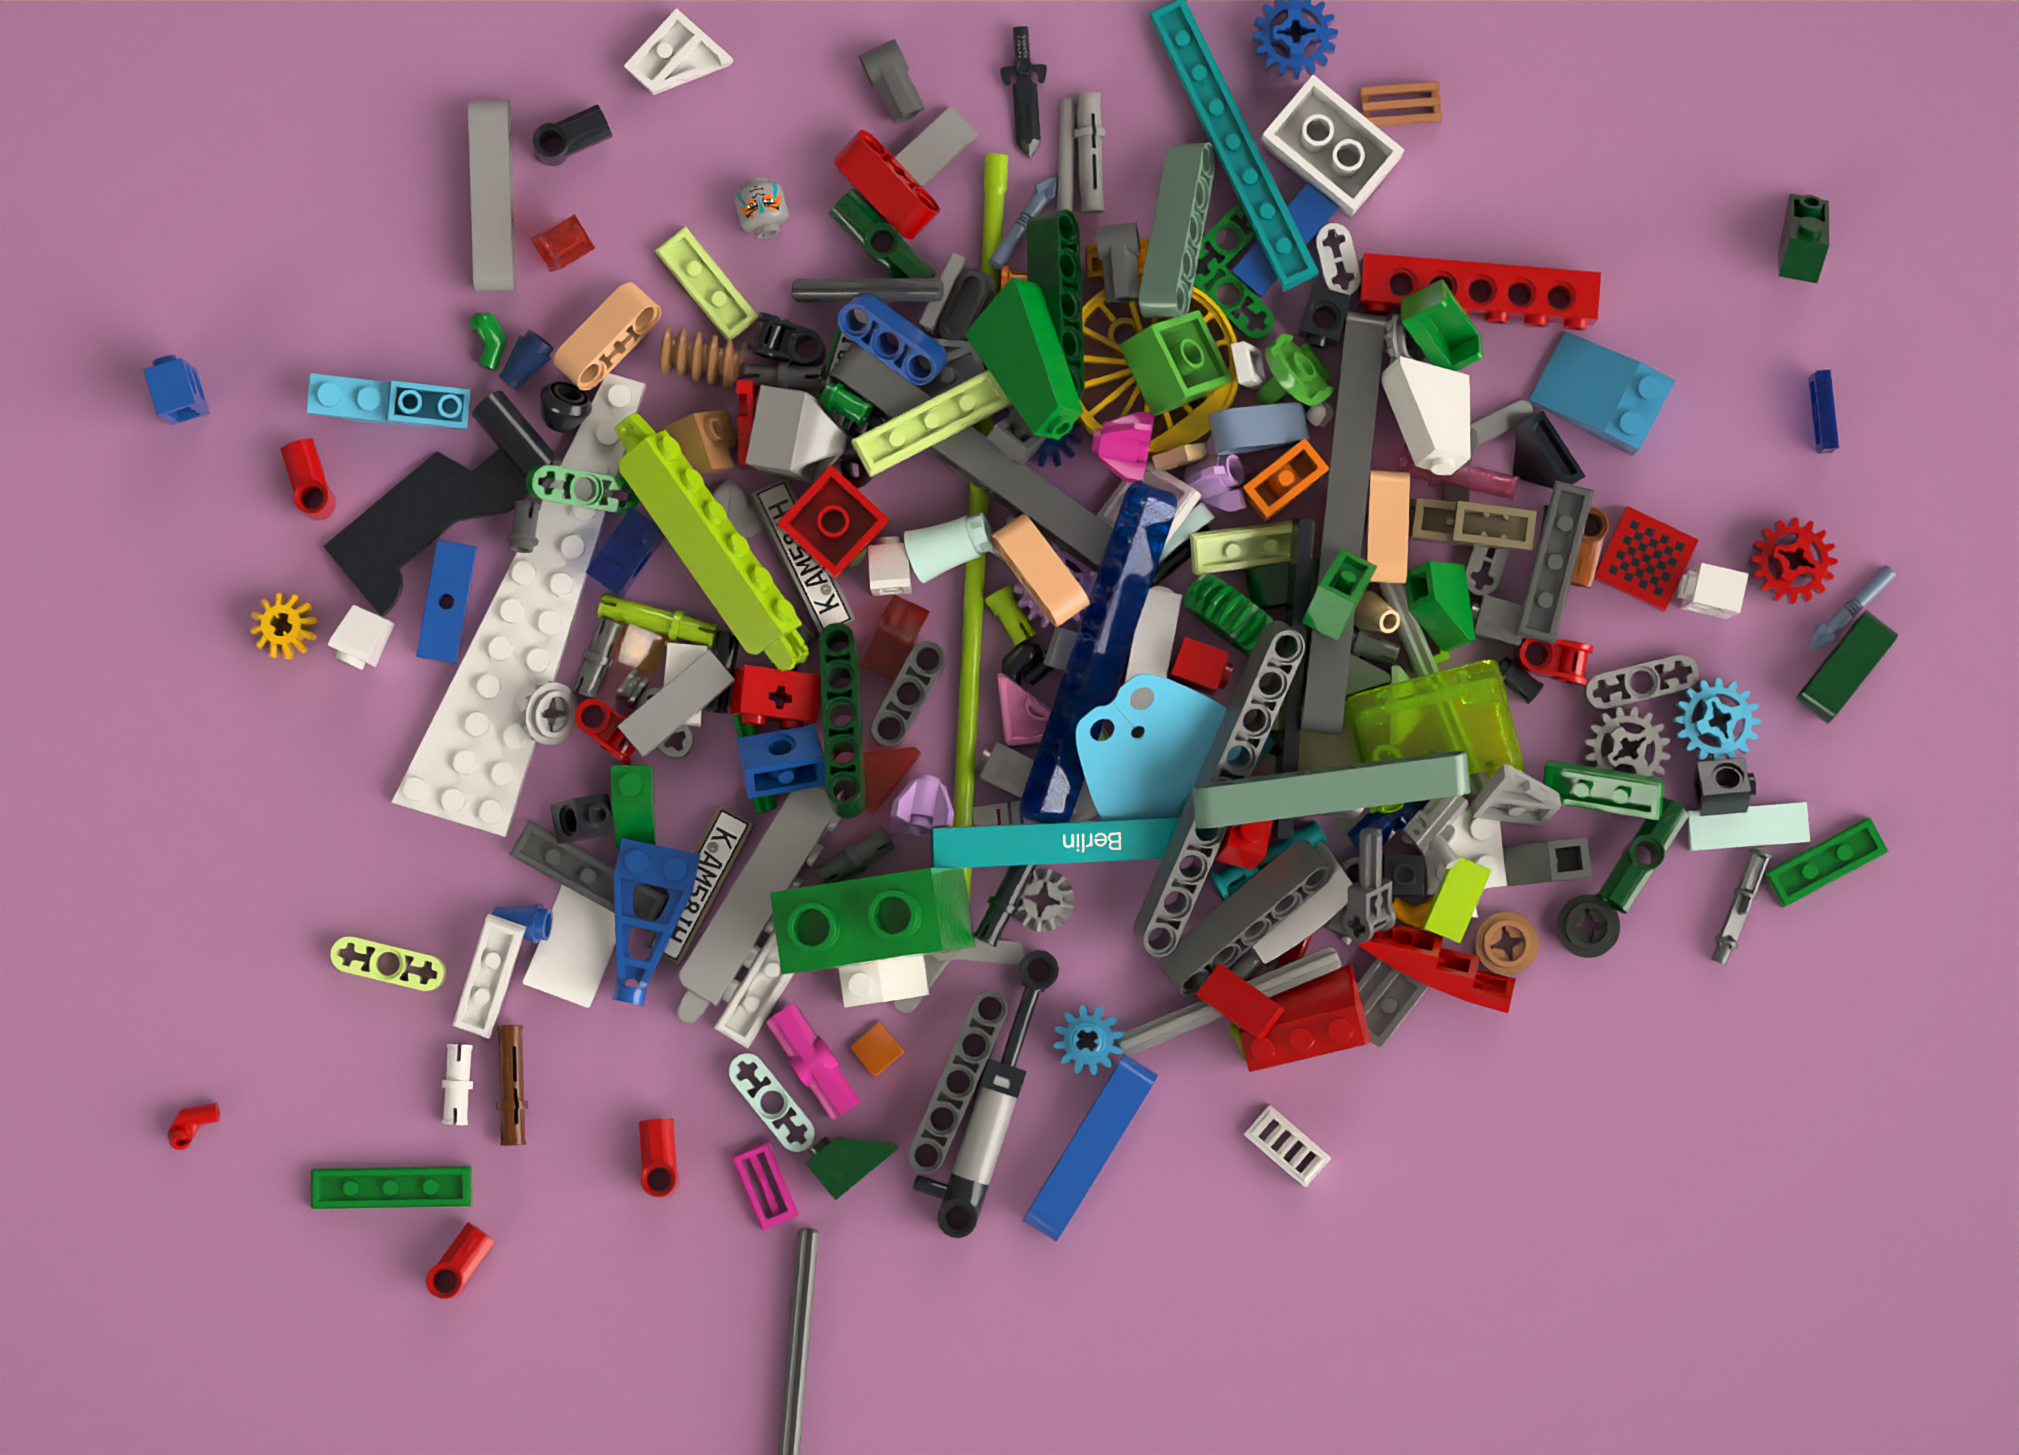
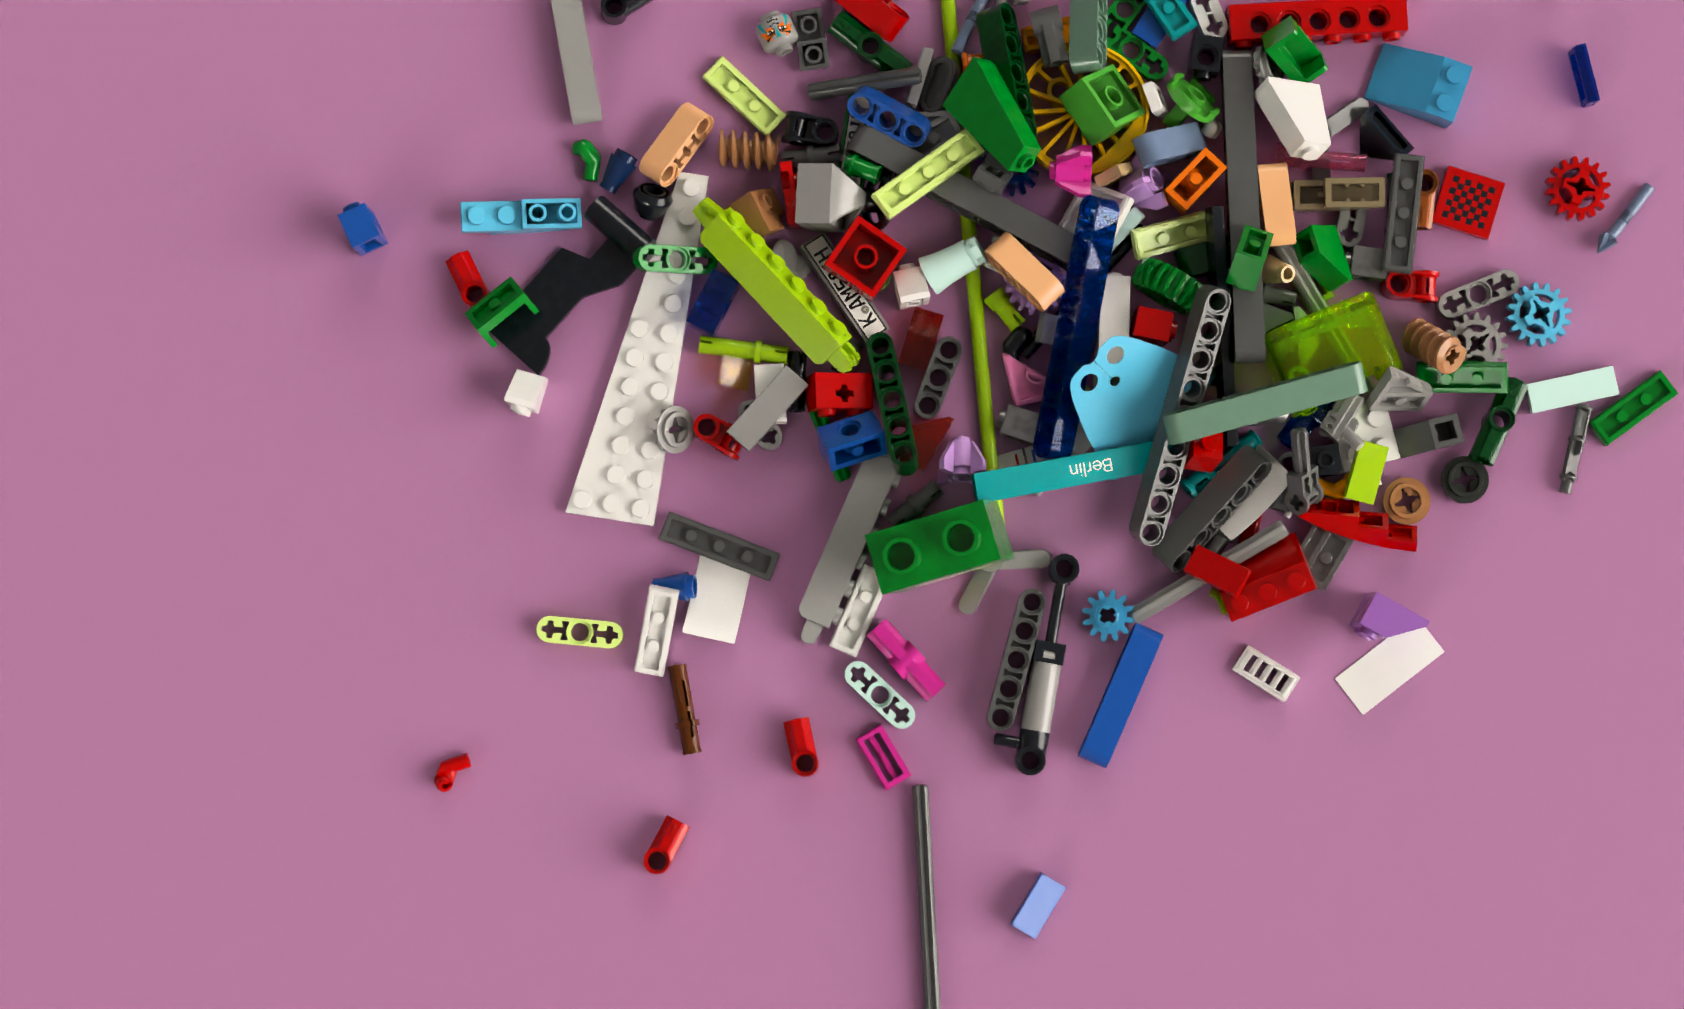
camera: 10 degrees left, 0 degrees up
(272, 634) = (458, 399): yellow gear -> none
(339, 519) = (497, 307): none -> green panel
(391, 1187) = (606, 797): green tile -> none
(452, 577) = (585, 339): blue tile -> none
(457, 1084) = (644, 714): white pin -> none
(524, 527) = (635, 294): dark grey pin -> none
(562, 243) = (633, 80): clear red brick -> none
(582, 818) = (709, 504): black brick -> none
(598, 658) = (703, 383): dark grey pin -> none
(632, 687) = (732, 402): dark grey bush -> none
(633, 803) = (745, 489): green slope -> none
(654, 866) = (771, 532): blue plate -> none
(718, 853) = (802, 541): tile -> none
(806, 221) = (811, 39): none -> dark grey slope
(846, 1161) = (942, 730): dark green slope -> none
(877, 1049) = (952, 644): orange slope -> none
(883, 981) = (950, 593): white slope -> none
(941, 1411) = (1037, 905): none -> slope
(1003, 903) = (1031, 523): black pin -> none
(1054, 915) = (1048, 526): light grey gear -> none
(1452, 1096) = (1384, 618): none -> medium lavender slope
(1453, 1157) = (1388, 667): none -> white sticker
(1519, 680) = (1389, 306): black pin -> none
(1569, 743) = (1433, 346): none -> medium nougat piece
(1712, 590) = (1522, 218): white brick -> none
(1716, 800) = (1540, 362): black brick -> none
(1847, 666) = (1628, 261): dark green beam -> none

